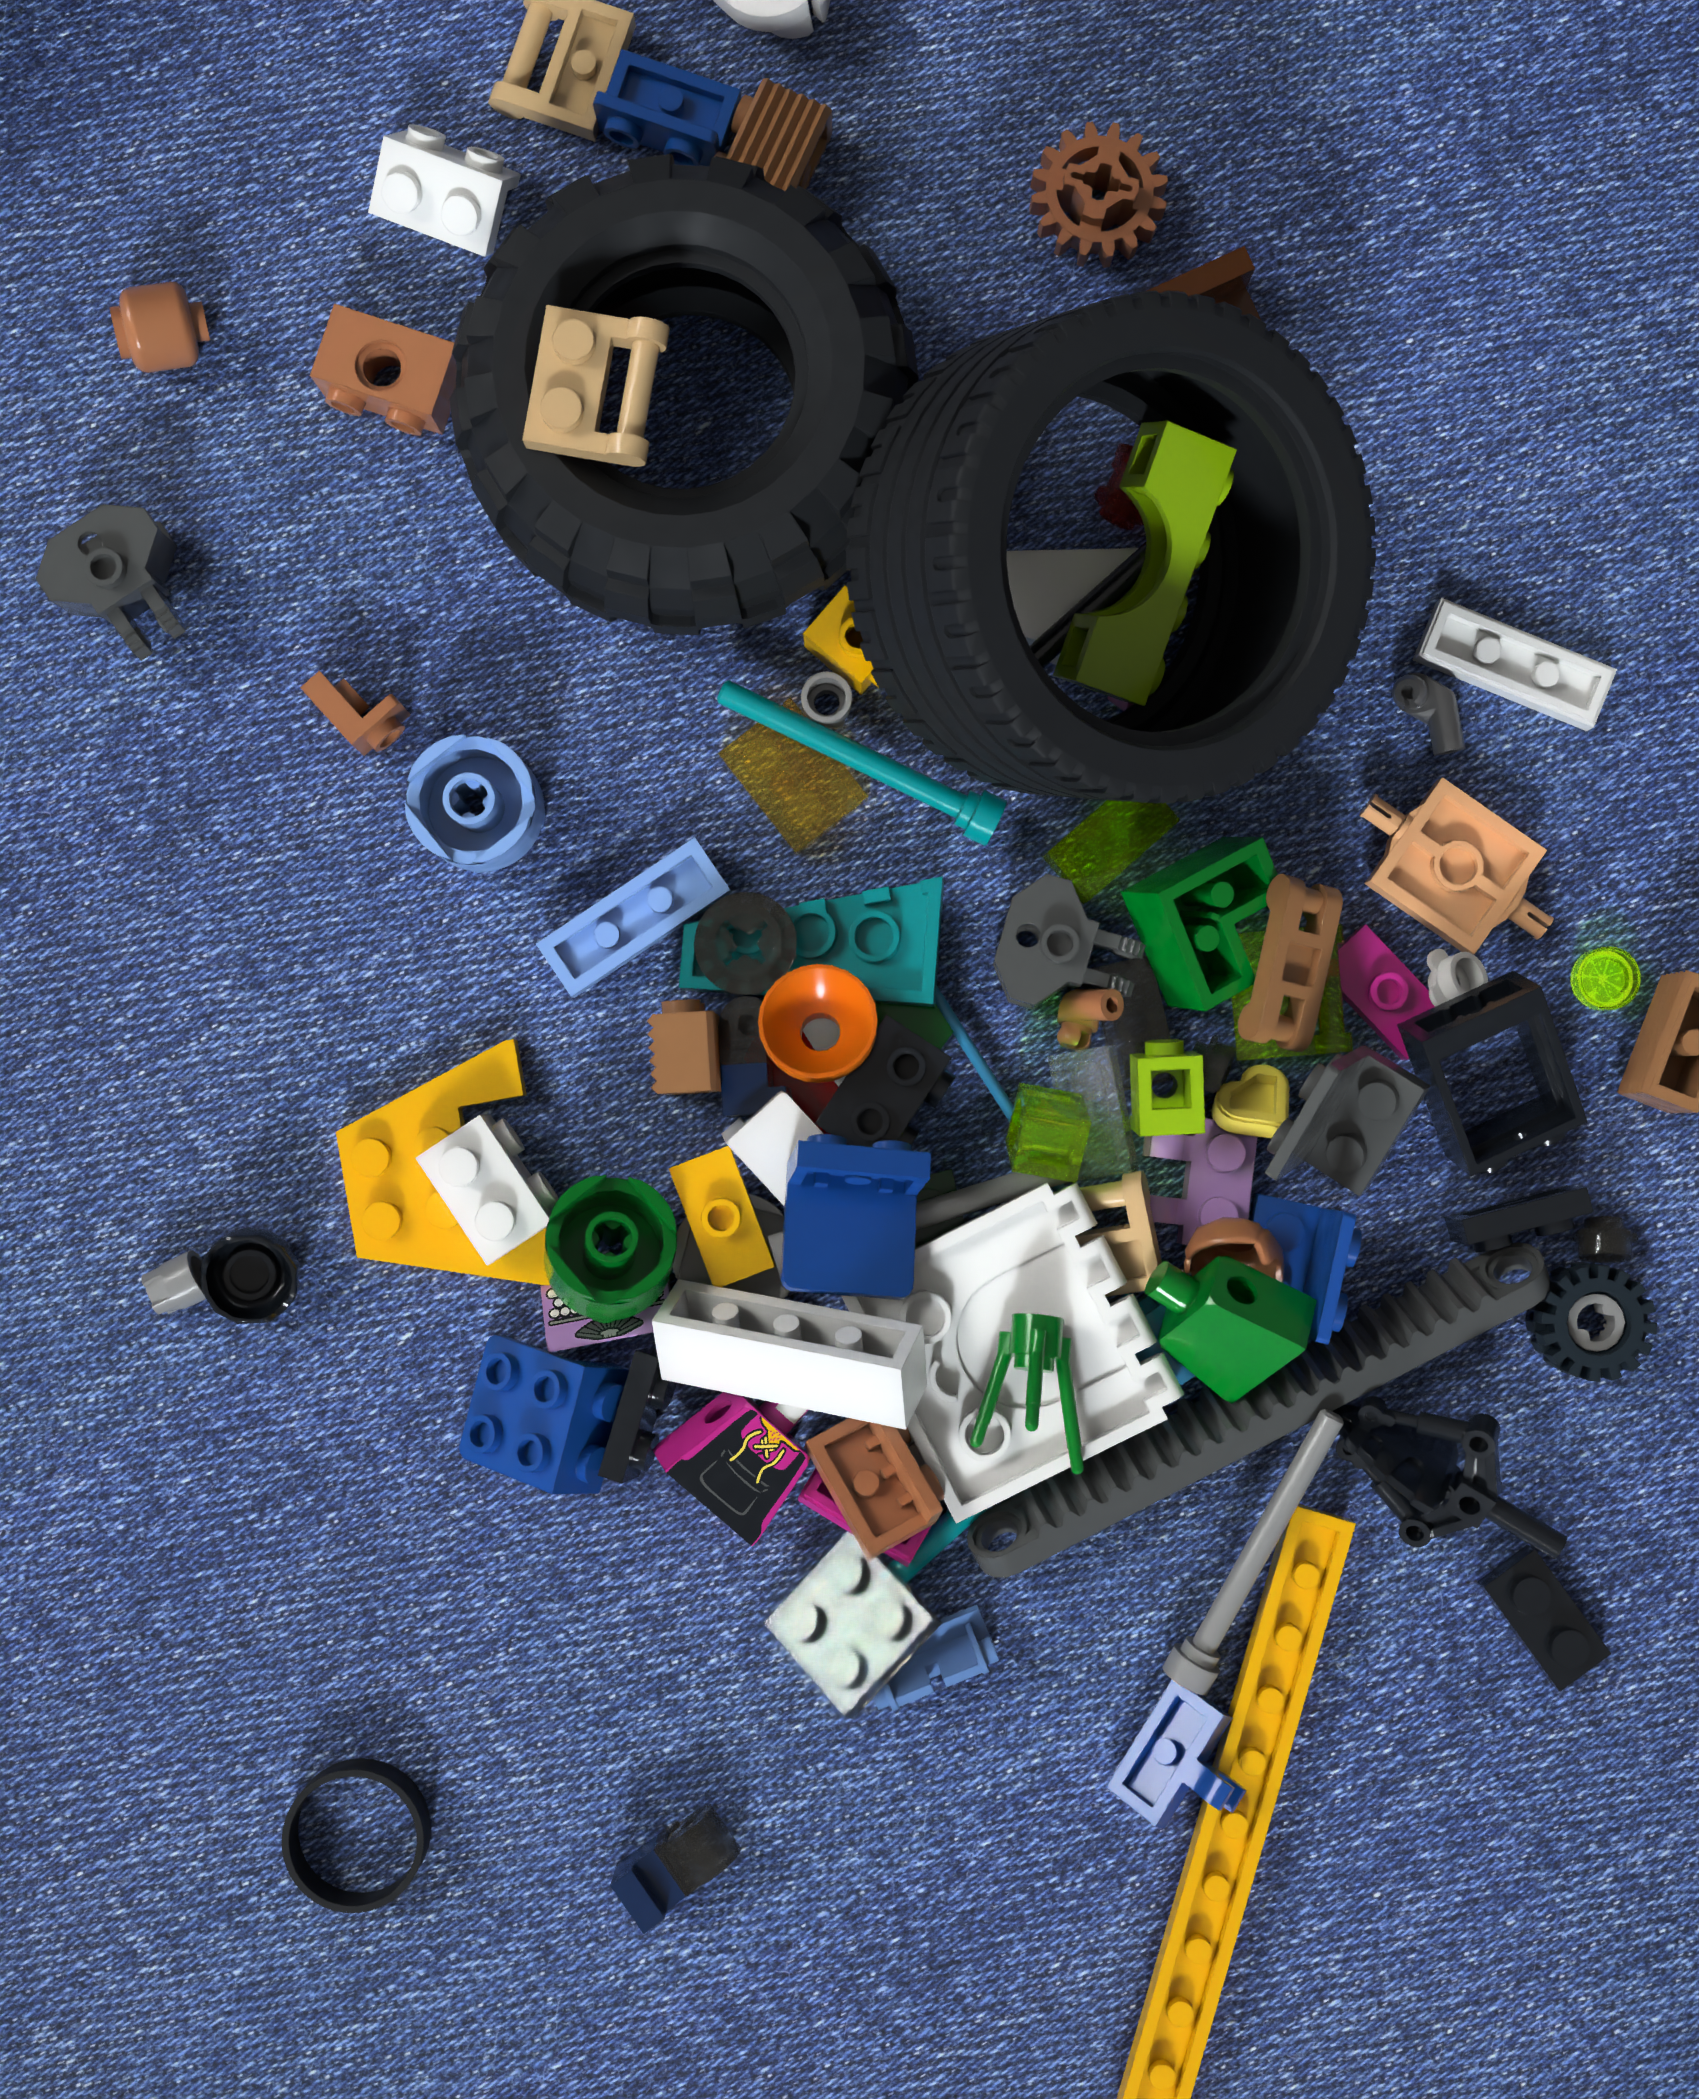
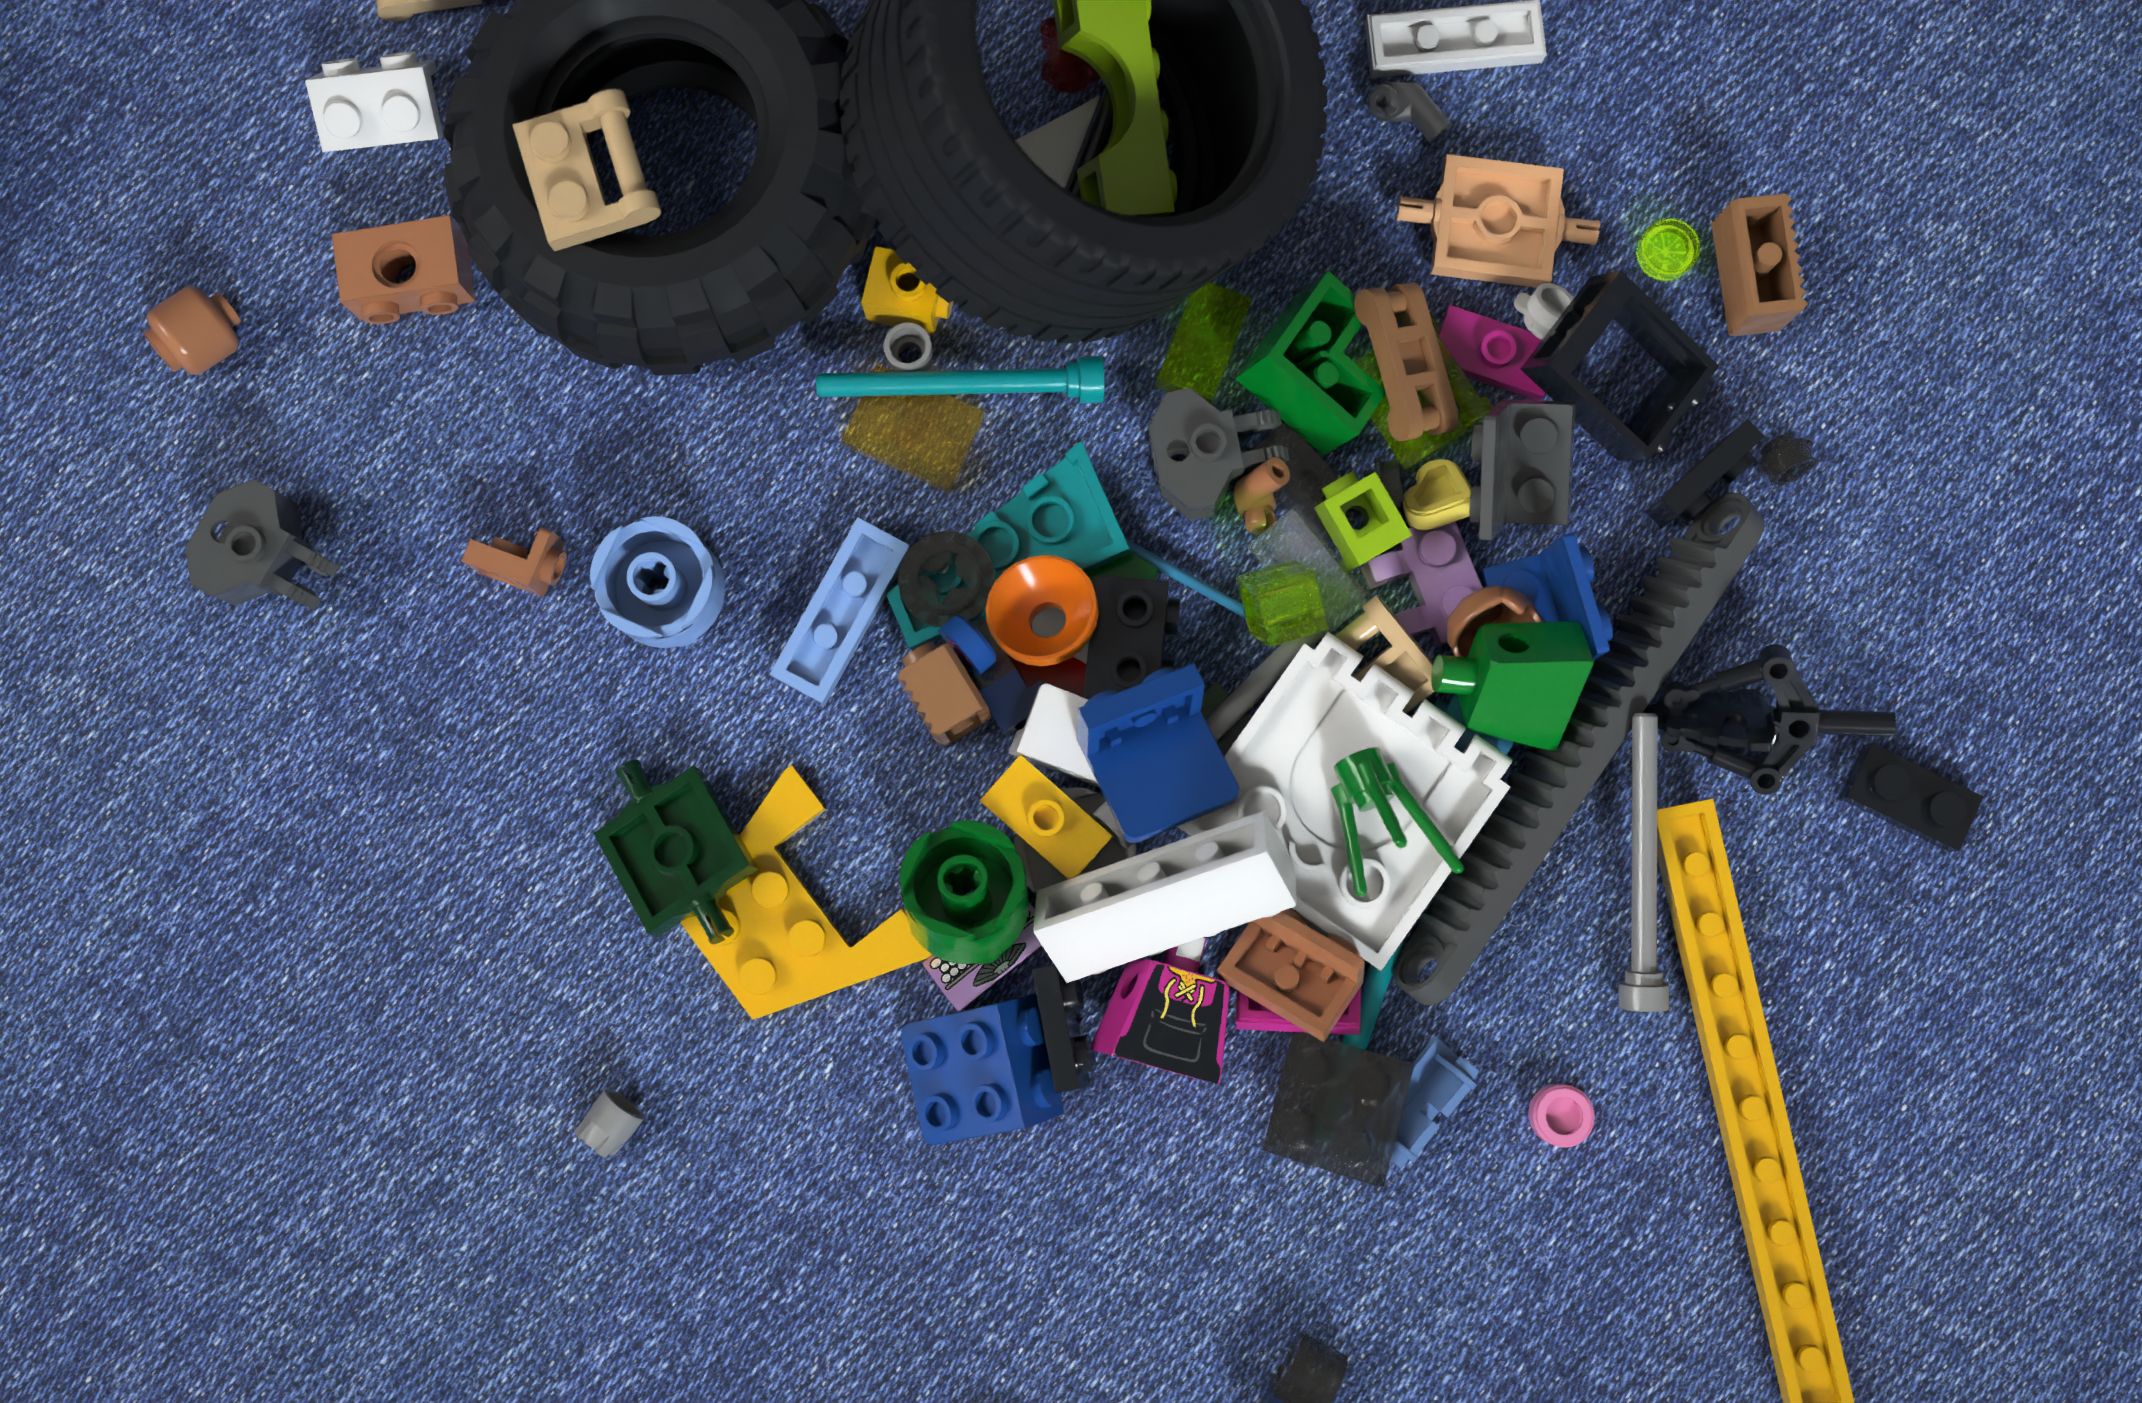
camera: 25 degrees left, 5 degrees down
(250, 1276) = (668, 1082): black hair -> none
(363, 1065) = (675, 851): none -> dark green plate
(489, 1186) = (835, 899): white bracket -> none
(732, 1019) = (968, 644): none -> blue tile
(1056, 1735) = (1561, 1115): none -> bright pink tile
(1172, 1758) = (1669, 1077): plate -> none
(1570, 1346) = (1808, 560): black bush -> none

